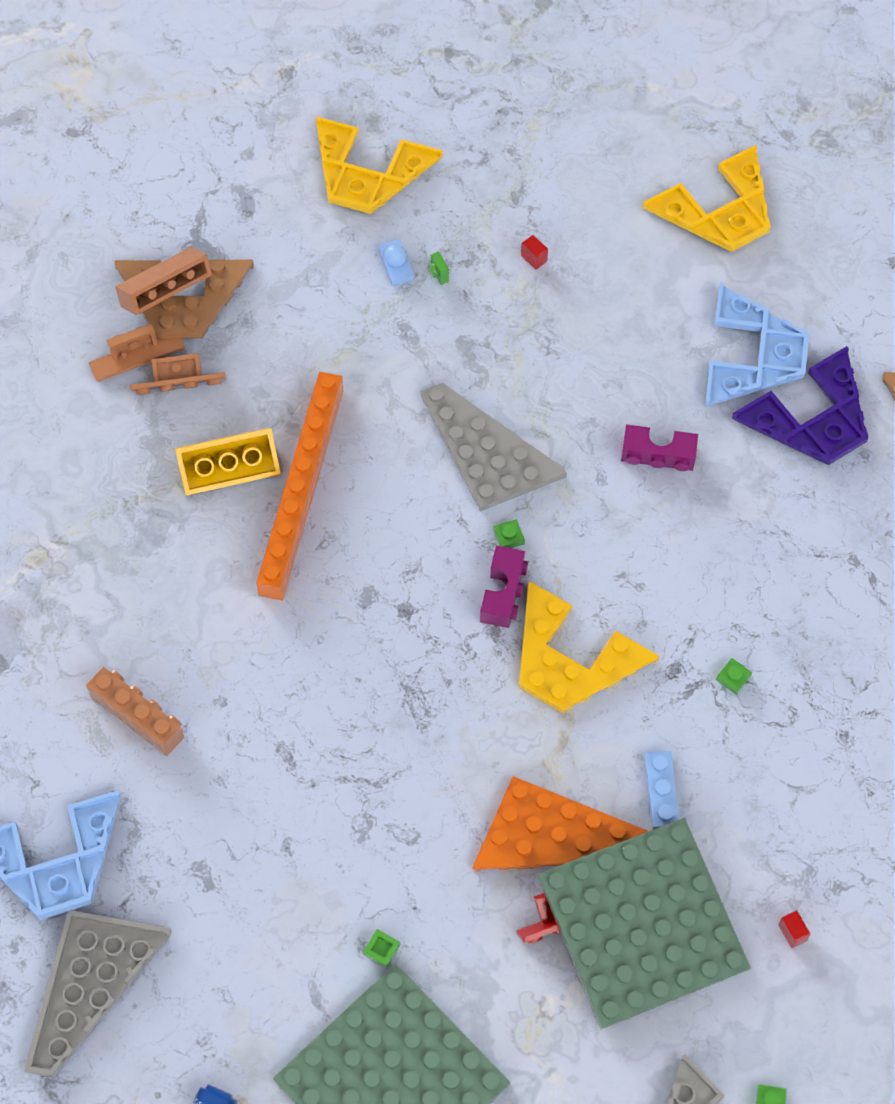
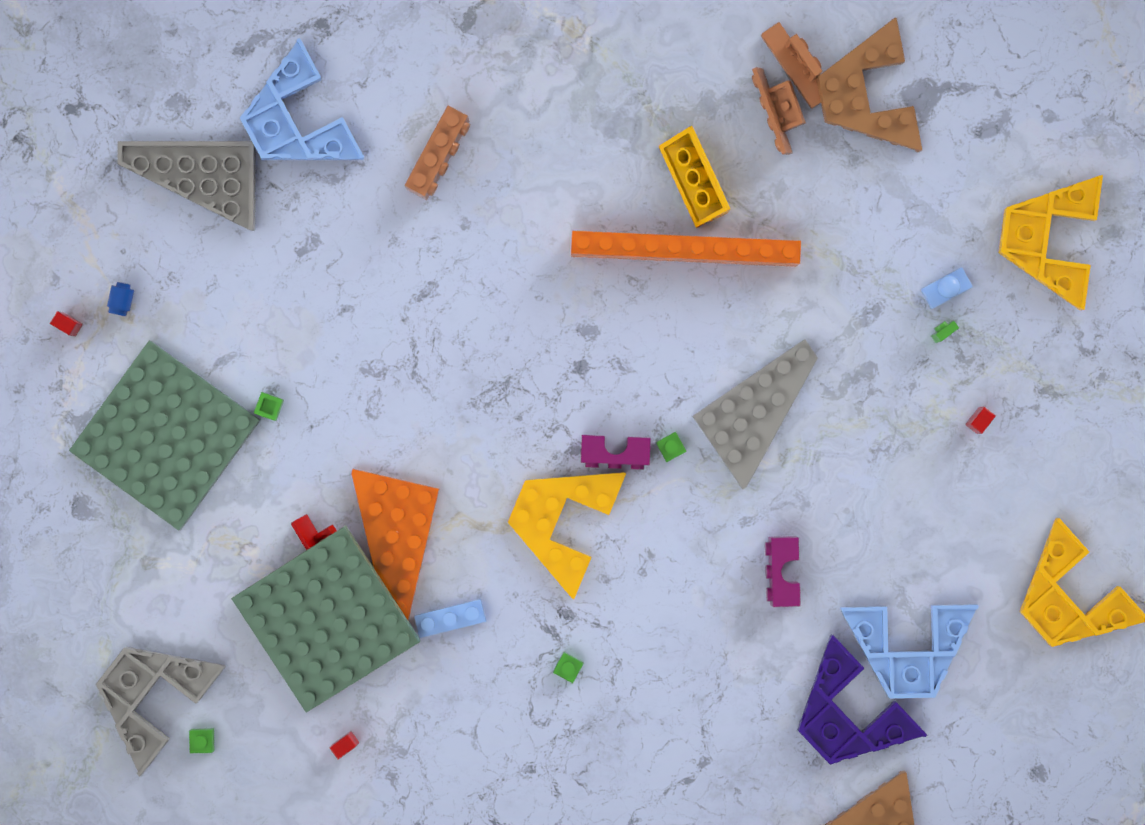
camera: 80 degrees right, 25 degrees up
(163, 280) = (869, 66): nougat brick -> none

